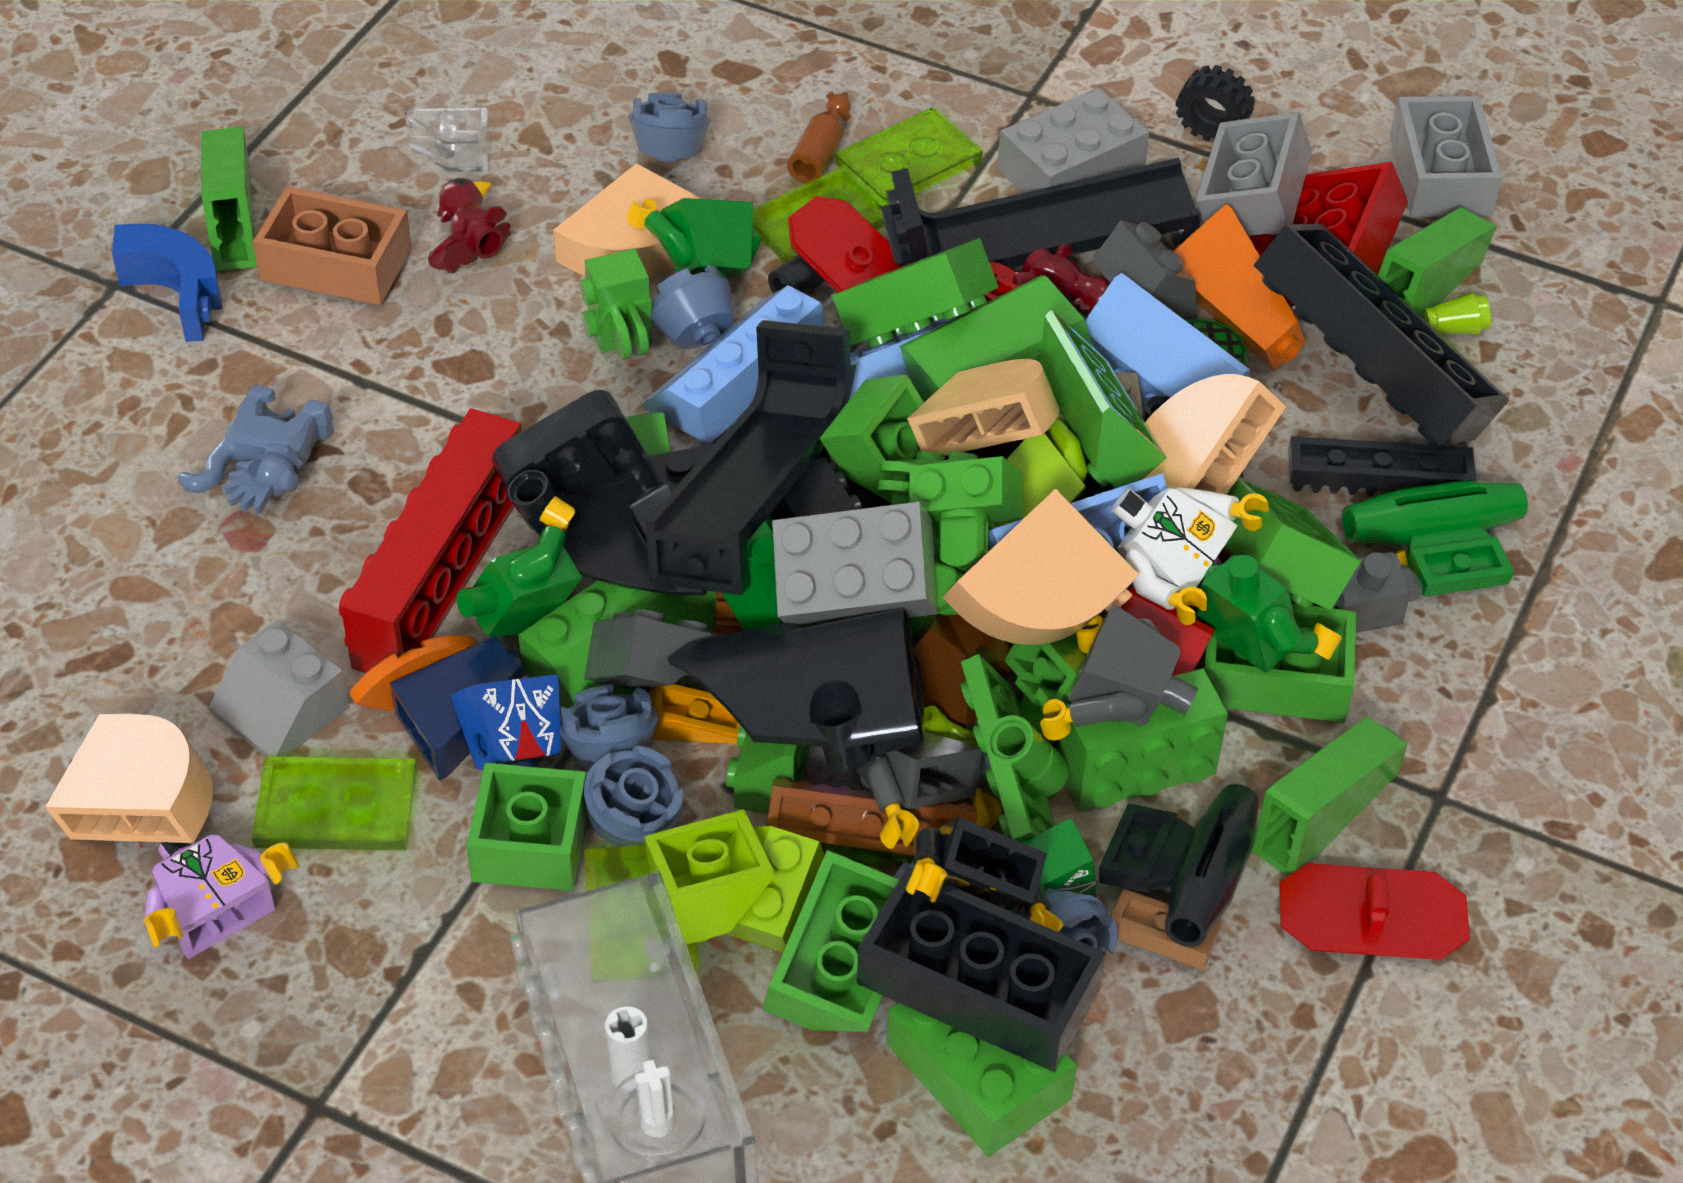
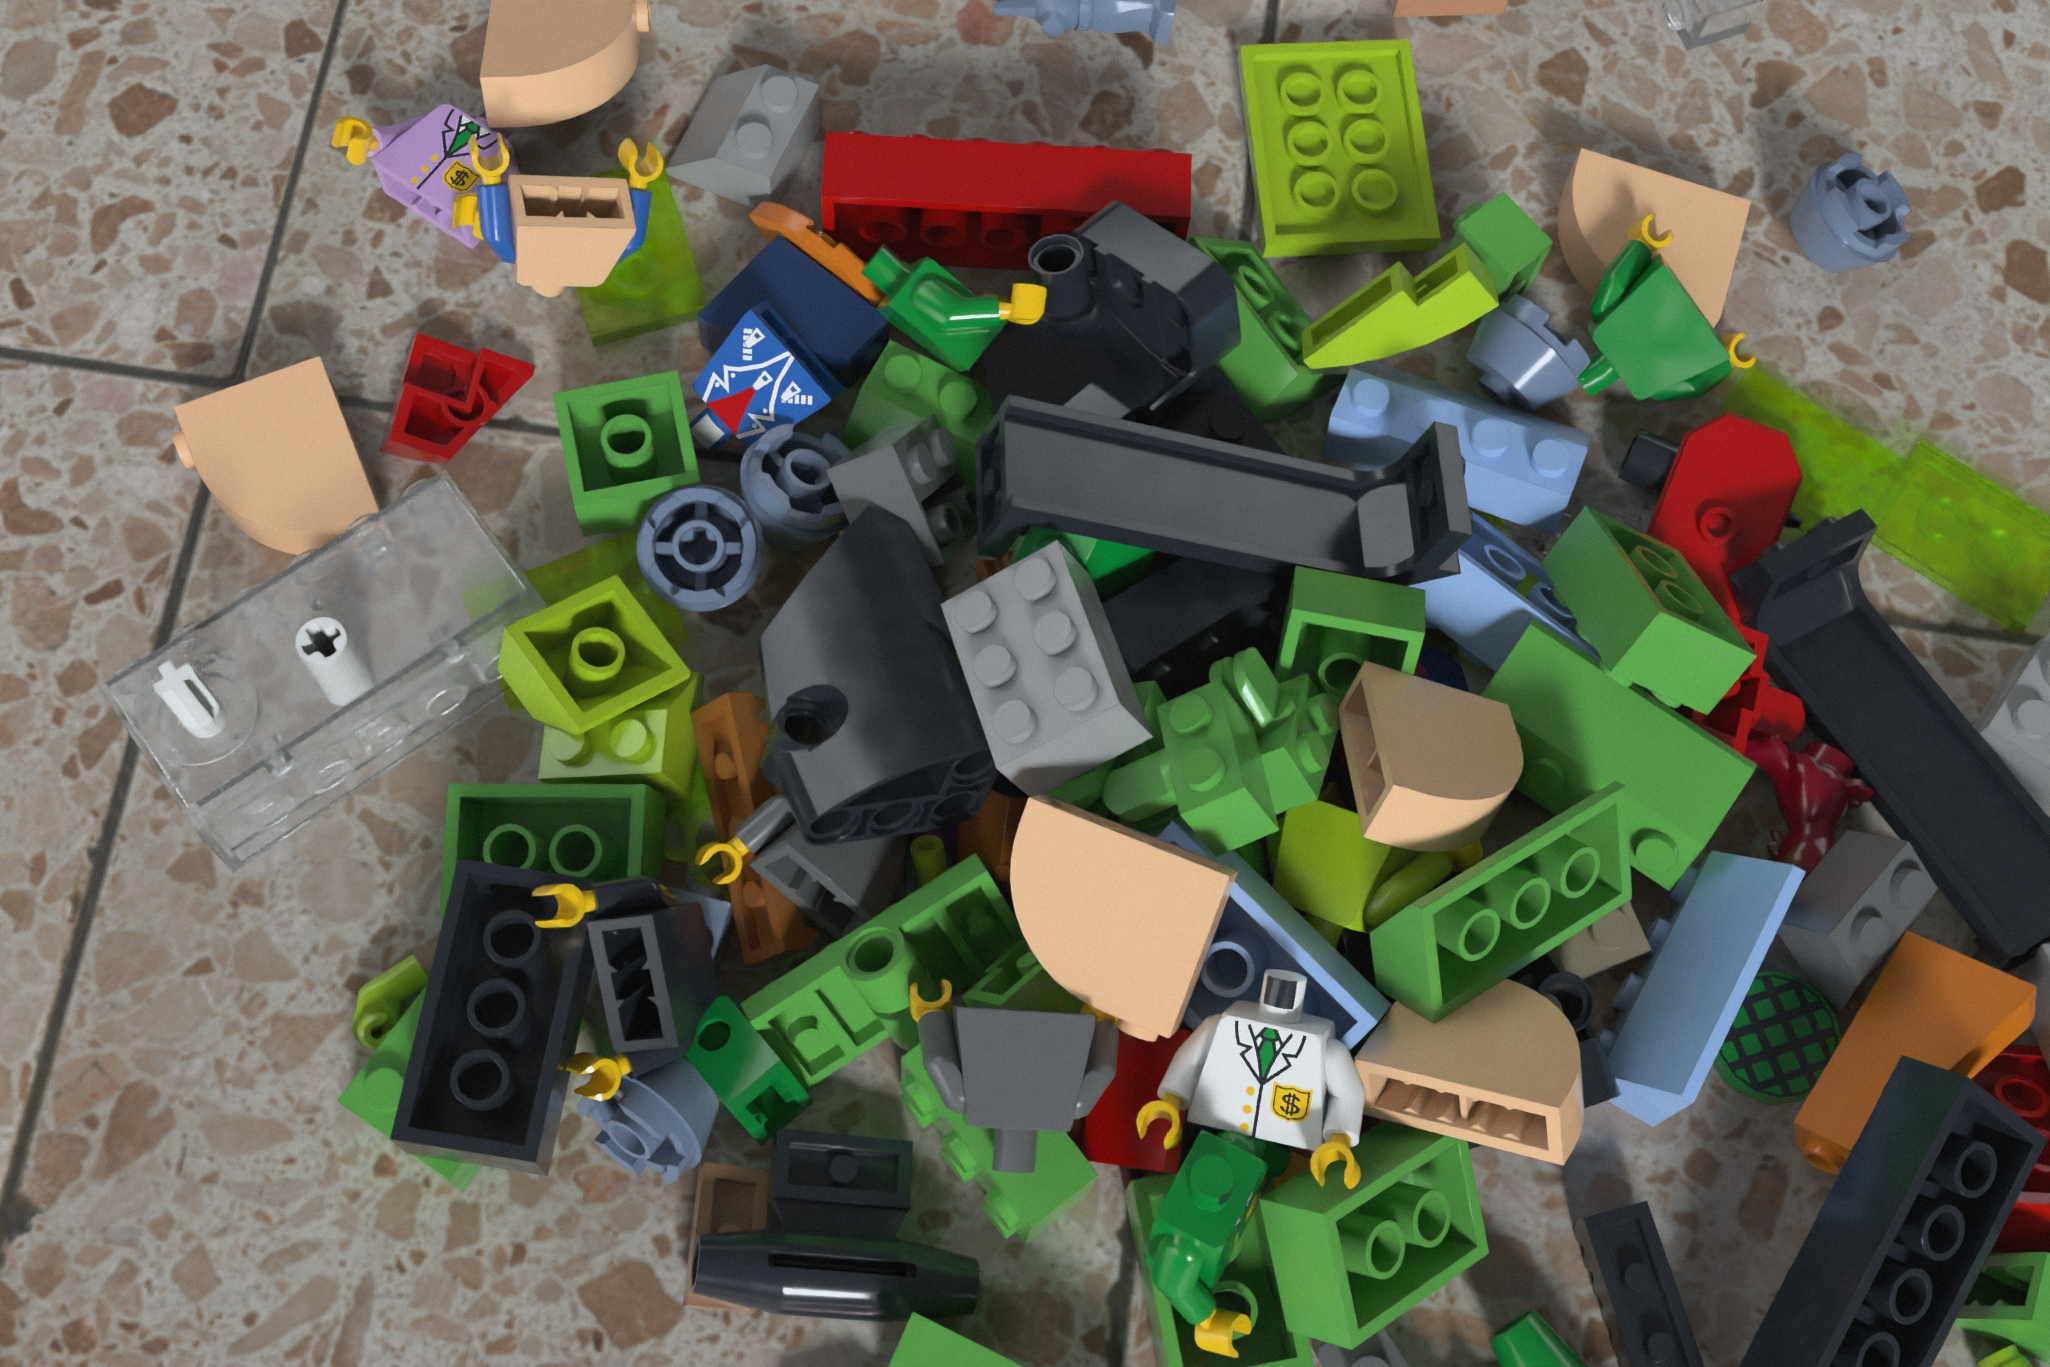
camera: 65 degrees right, 20 degrees up
(323, 800) = (564, 226): none -> light nougat torso
(410, 952) = (448, 398): none -> red slope
(422, 1067) = (279, 457): none -> light nougat brick
(471, 228) = (1554, 61): dark red animal -> none
(472, 358) = (1337, 148): none -> lime plate
(644, 343) = (1402, 311): none -> lime slope
(819, 140) = (1938, 412): dark orange wheel -> none
(918, 1116) = (381, 1000): none -> lime arm

